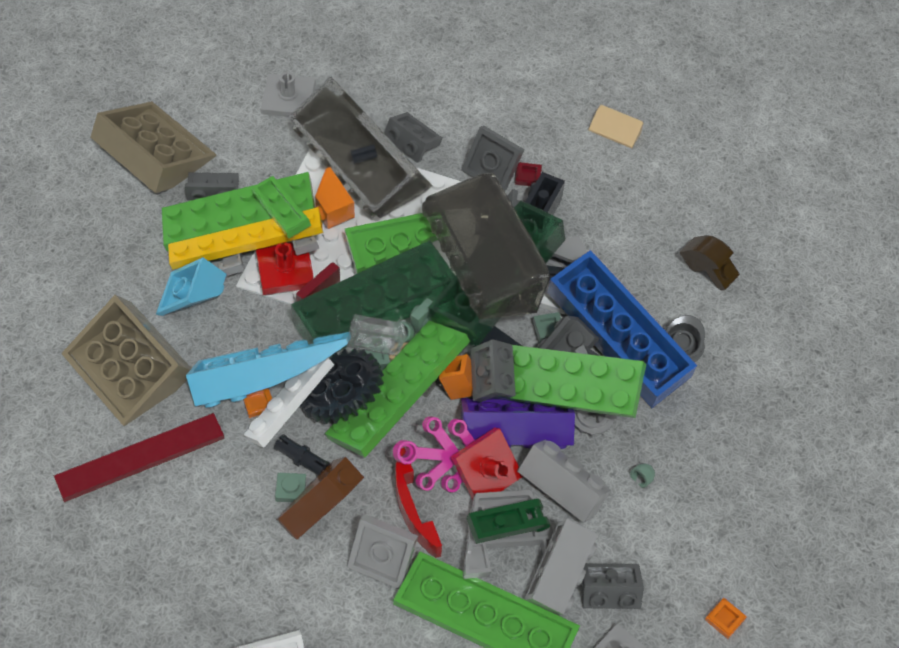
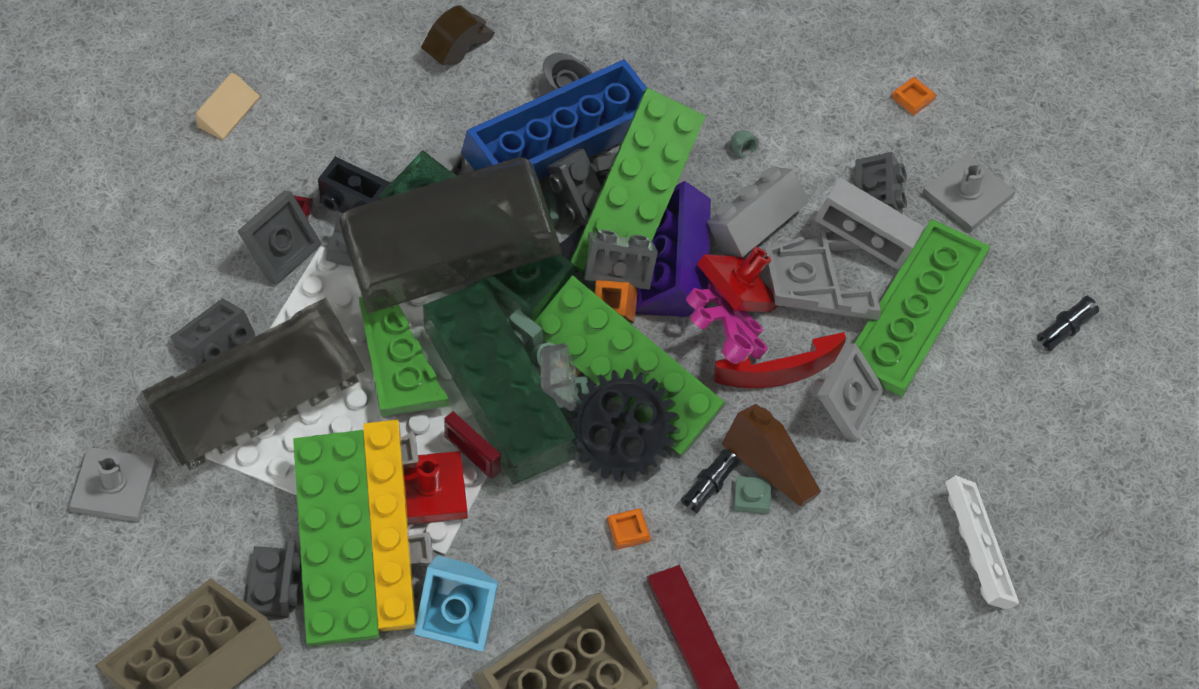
camera: 85 degrees left, 0 degrees up
(248, 371) = (601, 515): medium azure wedge -> none
(281, 207) = (359, 465): bright green tile -> none
(285, 403) = (639, 484): white plate -> none
(333, 200) = (325, 416): orange slope -> none
(364, 154) = (253, 380): black piece -> none
(507, 521) = (816, 264): dark green plate -> none

